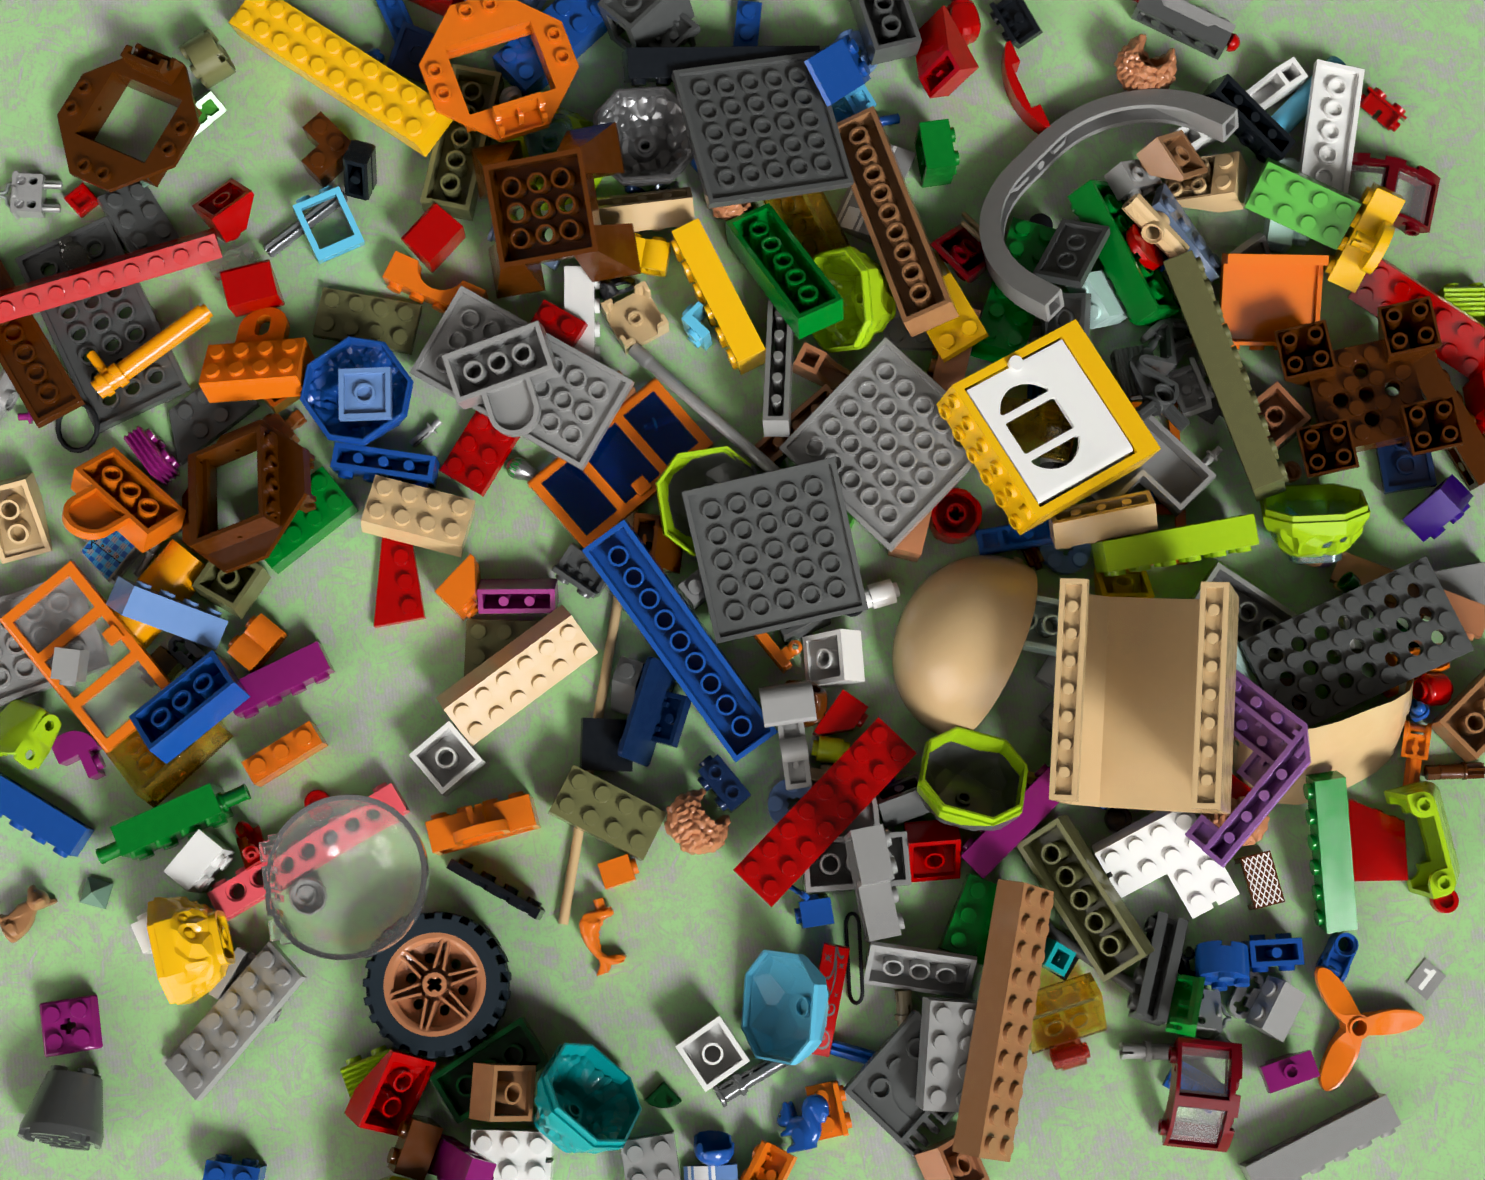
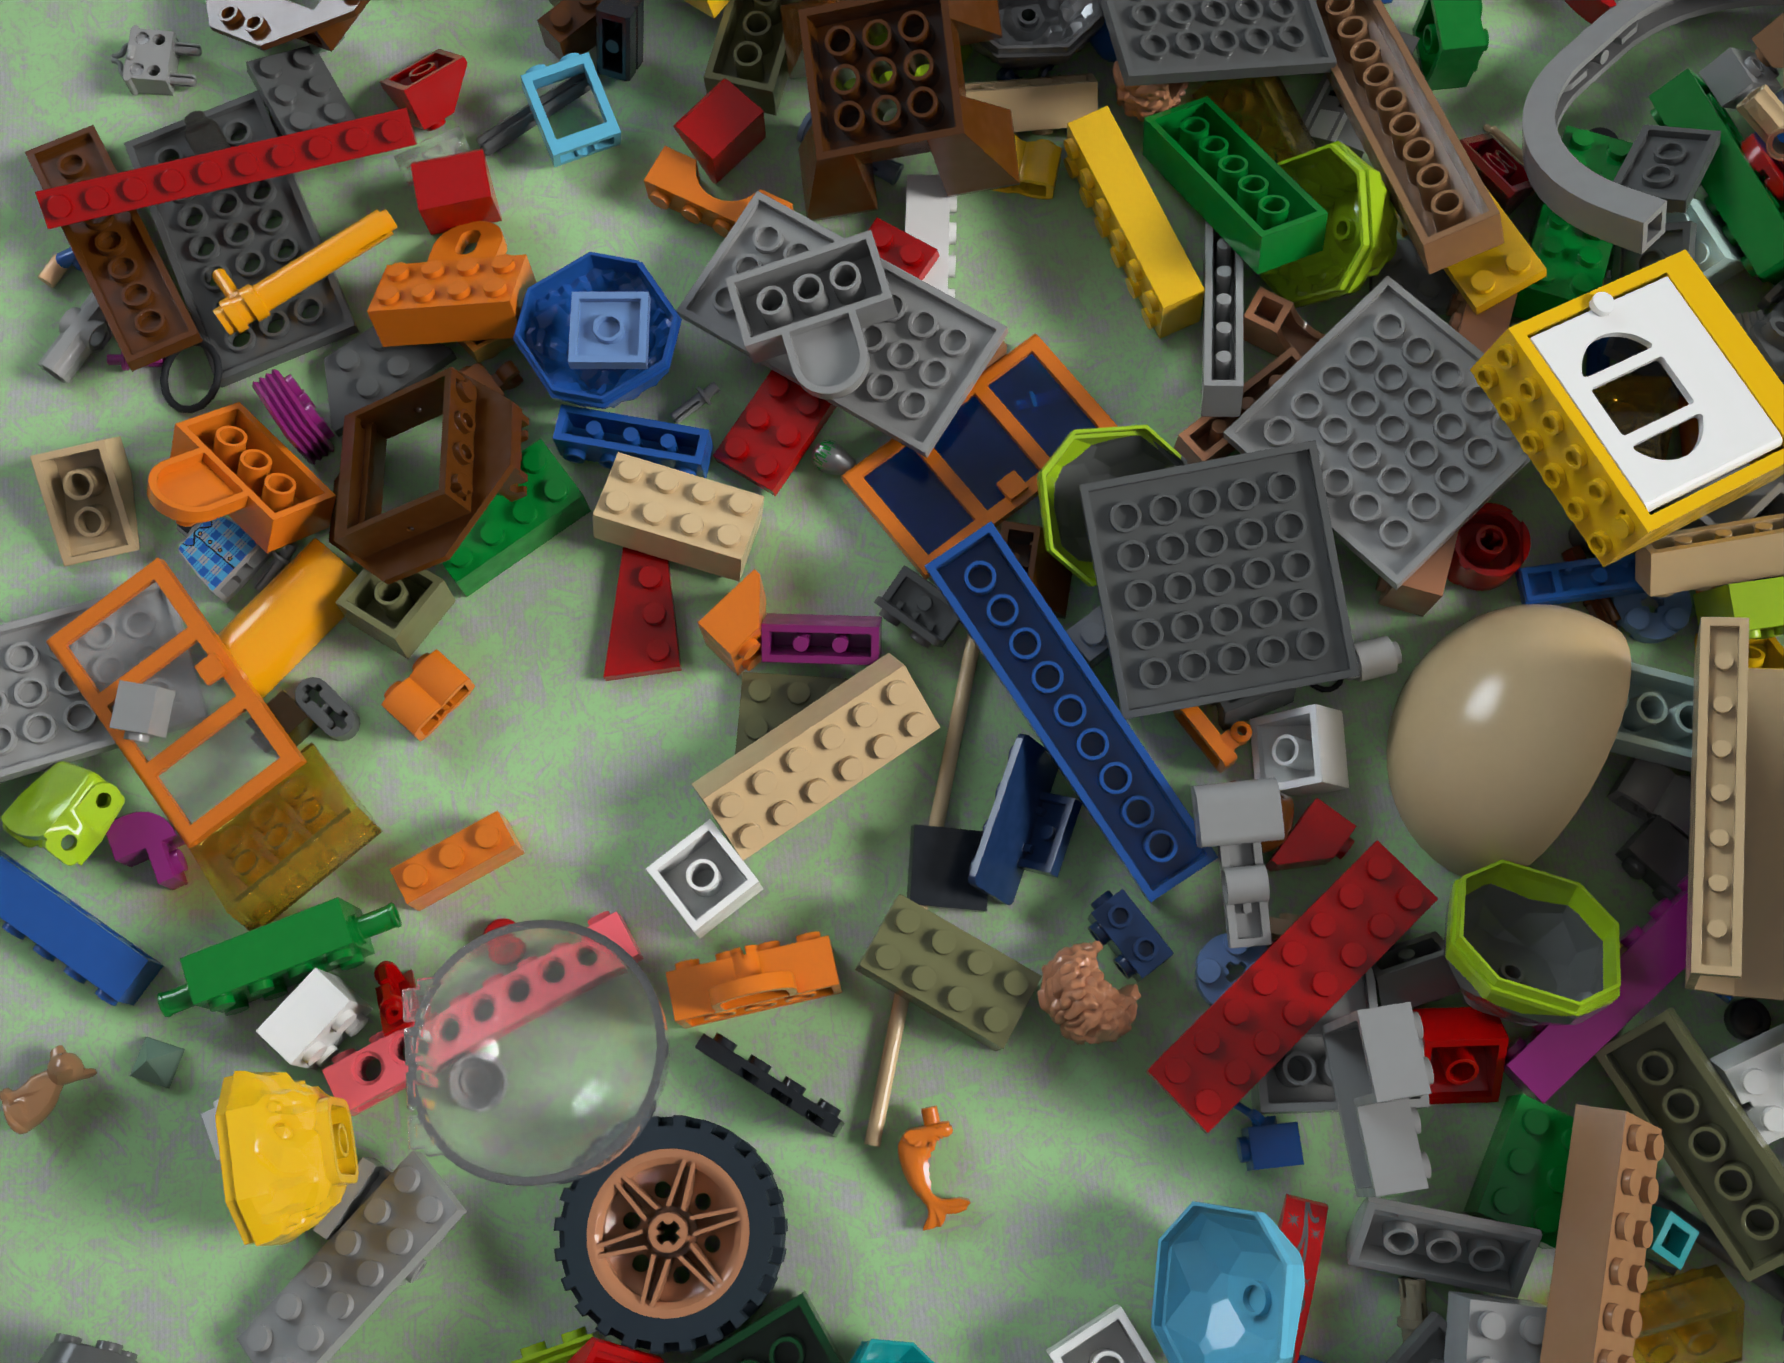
camera: 10 degrees right, 5 degrees down
(55, 1017) = (74, 1254): magenta brick -> none
(81, 200) = (226, 72): red tile -> none
(166, 612) = (296, 641): medium blue wedge -> none
(189, 707) = (315, 780): blue brick -> none
(283, 678) = (456, 750): magenta brick -> none
(367, 317) = (587, 227): olive plate -> none
(609, 289) = (974, 206): black piece -> none
(618, 871) = (962, 1065): orange brick -> none
(624, 684) = (980, 777): dark grey slope -> none
(635, 318) = (1007, 253): tan panel -> none
(648, 361) = (1026, 312): light grey piece -> none
(695, 330) = (1097, 265): medium azure bracket -> none
(829, 749) = (1294, 890): neon yellow brick -> none
(860, 958) = (1345, 1224): black piece -> none

